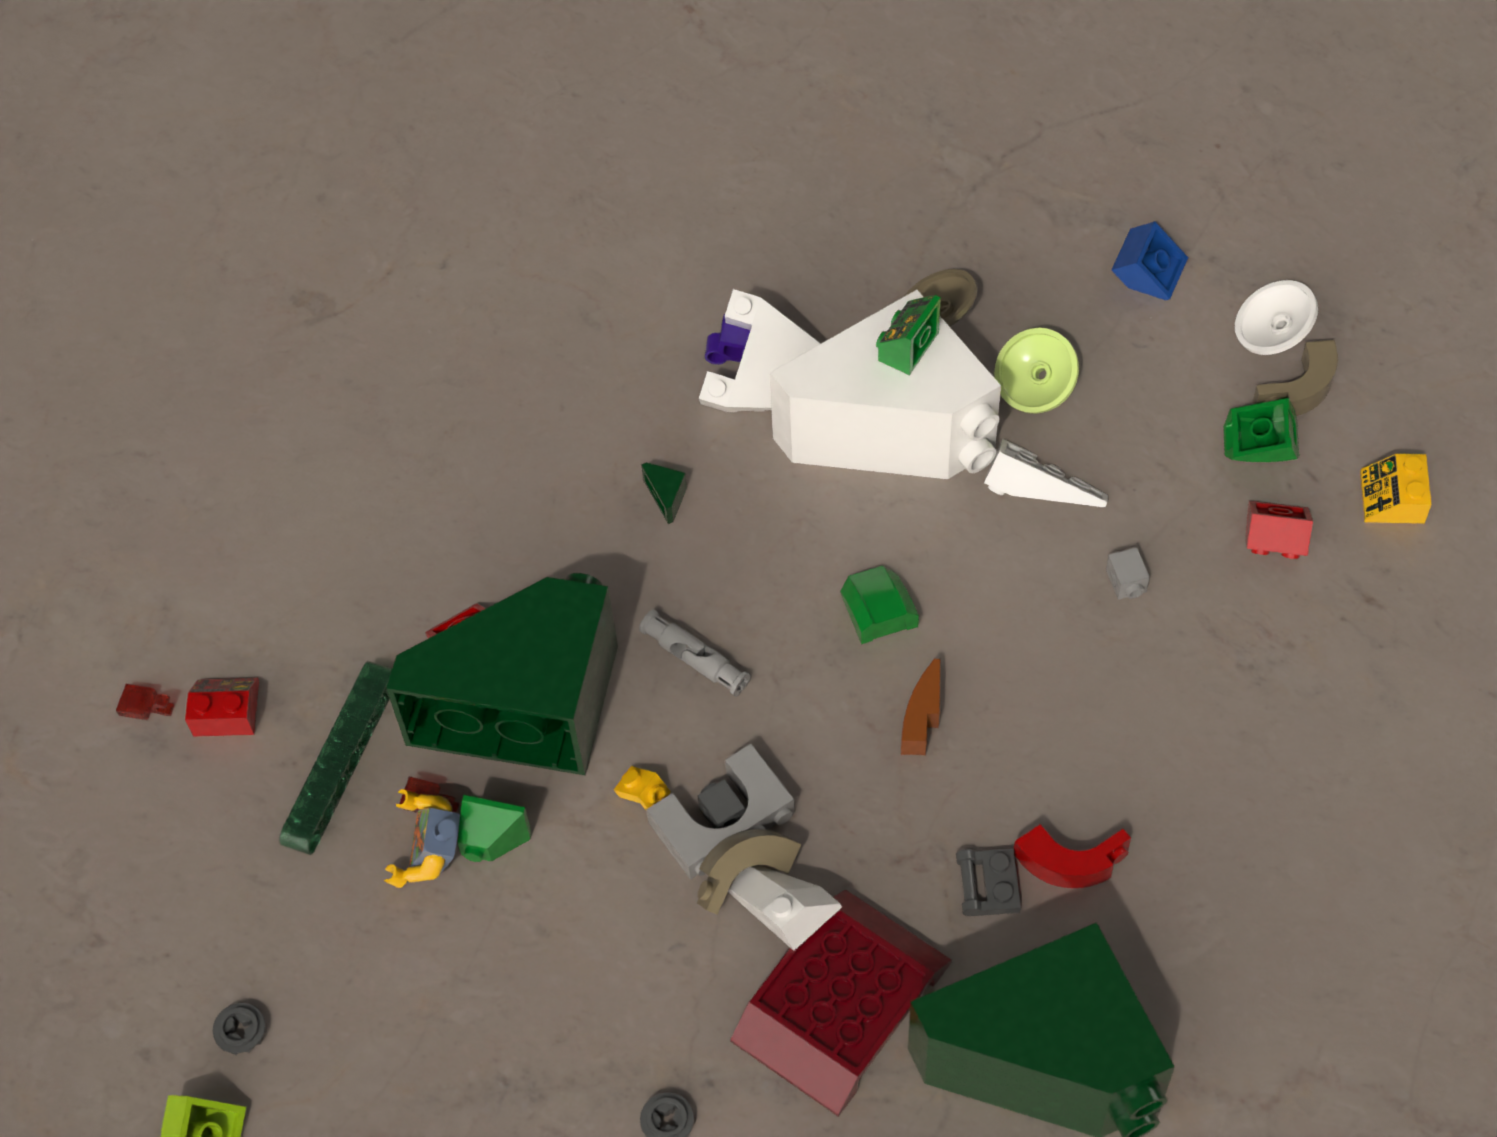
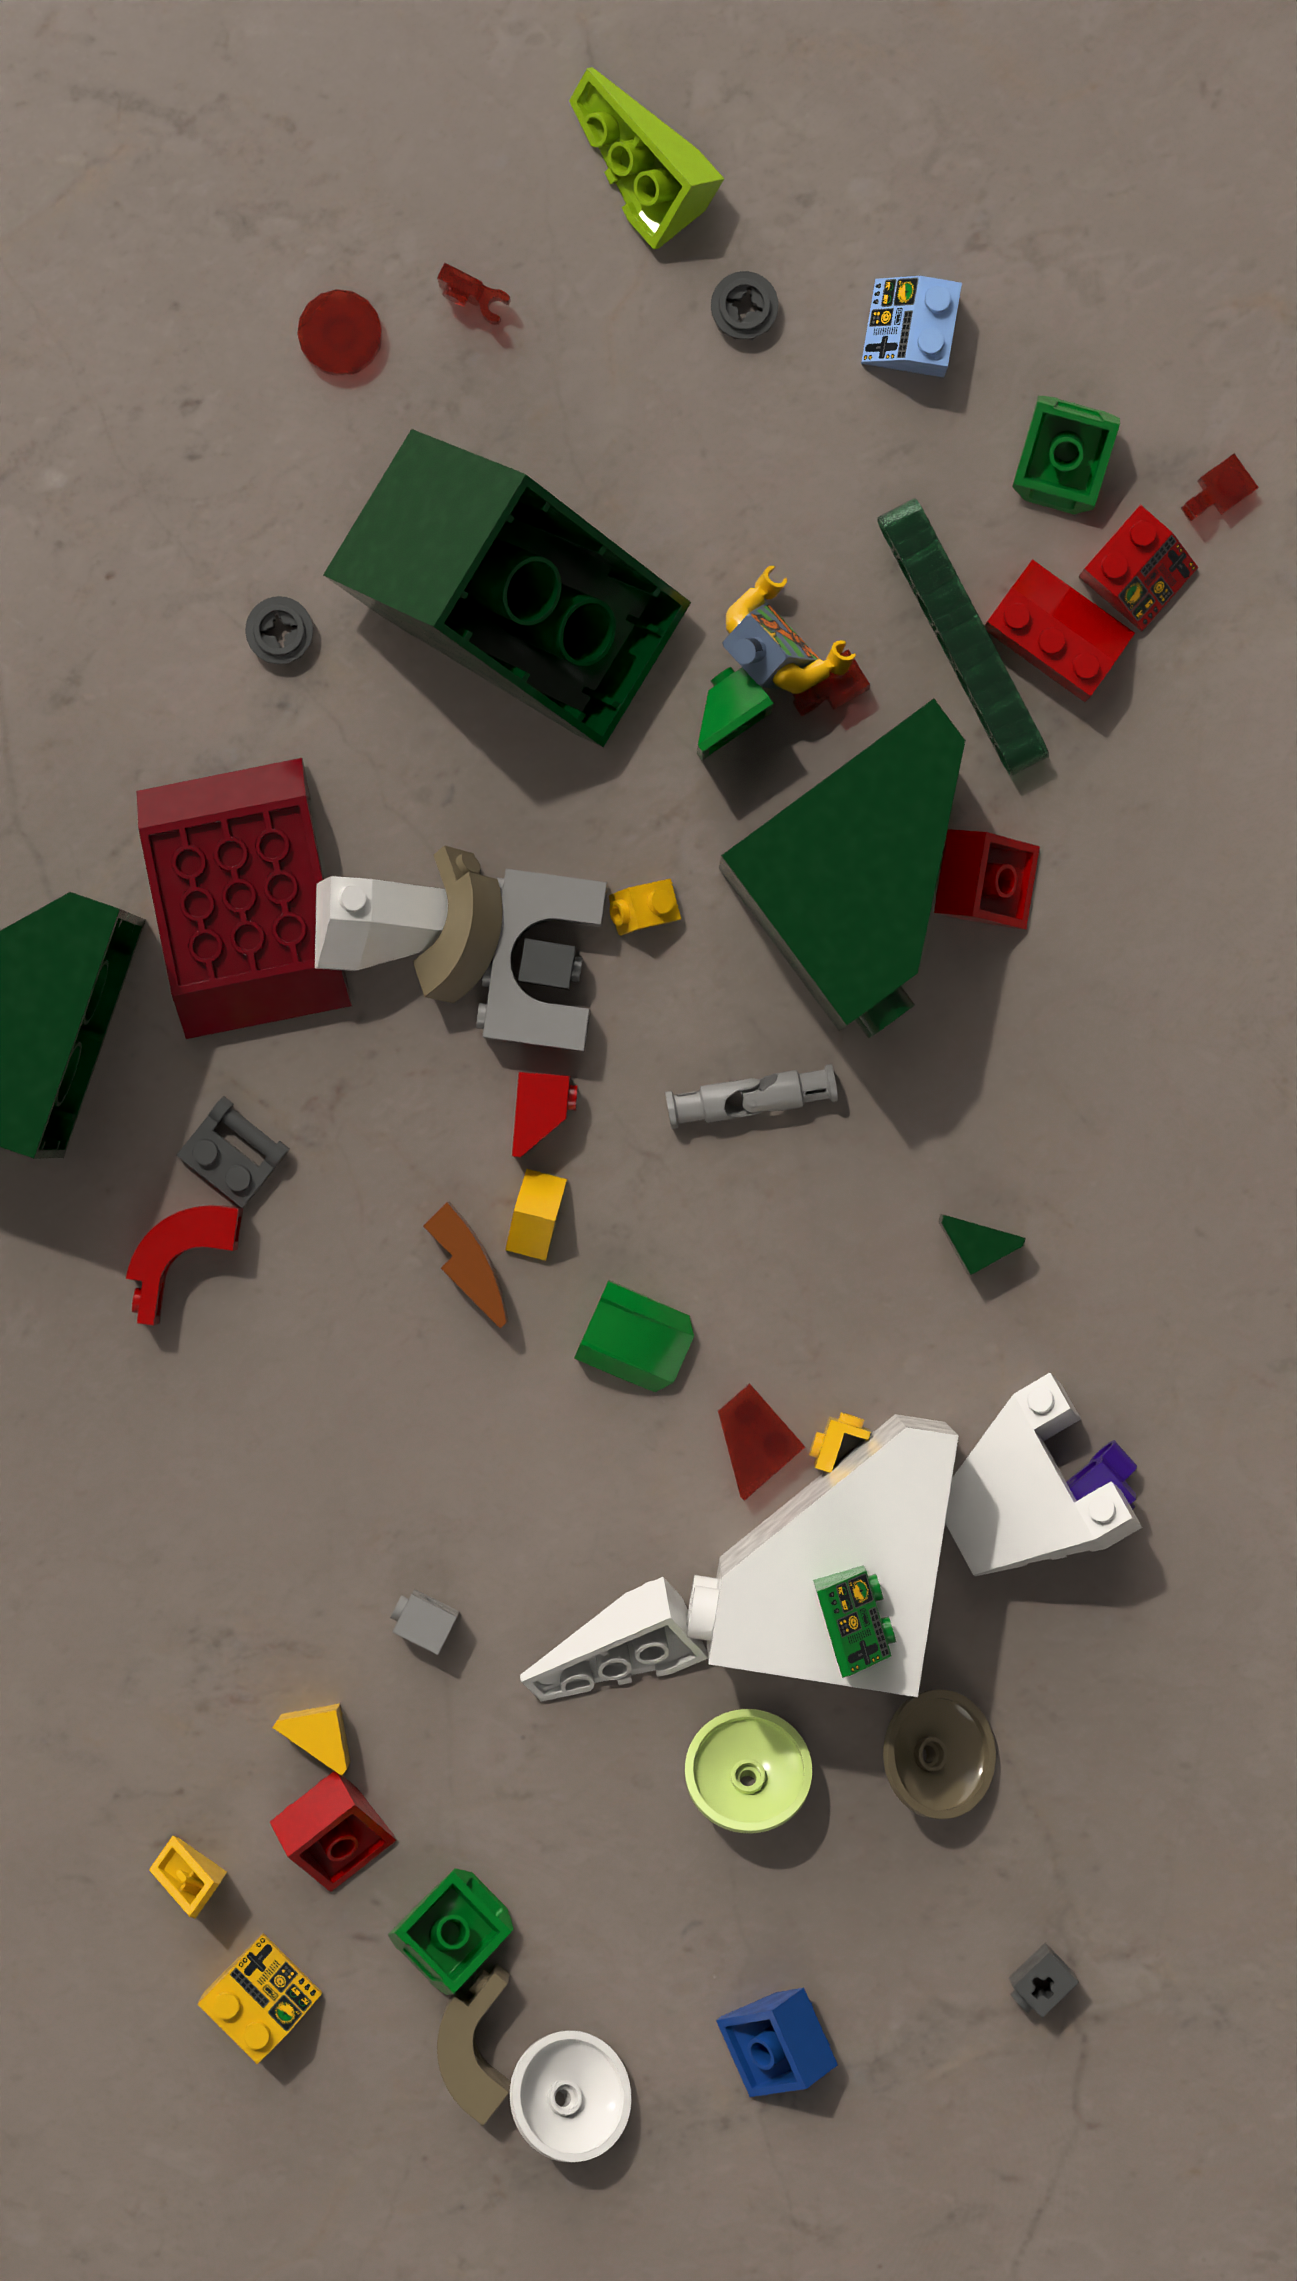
camera: 125 degrees right, 30 degrees up
(175, 926) = (912, 324): none -> light blue slope
(185, 787) = (1065, 455): none -> green slope
(294, 712) = (1058, 630): none -> red slope
(523, 1006) = (508, 584): none -> dark green slope
(805, 745) = (540, 1108): none -> red slope
(833, 472) = (827, 1444): none -> yellow bracket
(861, 702) = (535, 1214): none -> yellow slope
(871, 505) = (756, 1439): none -> clear red wing
(996, 185) = (1048, 1966): none -> dark grey brick
(1238, 575) = (319, 1733): none -> yellow slope
(1378, 569) = (187, 1875): none -> yellow slope

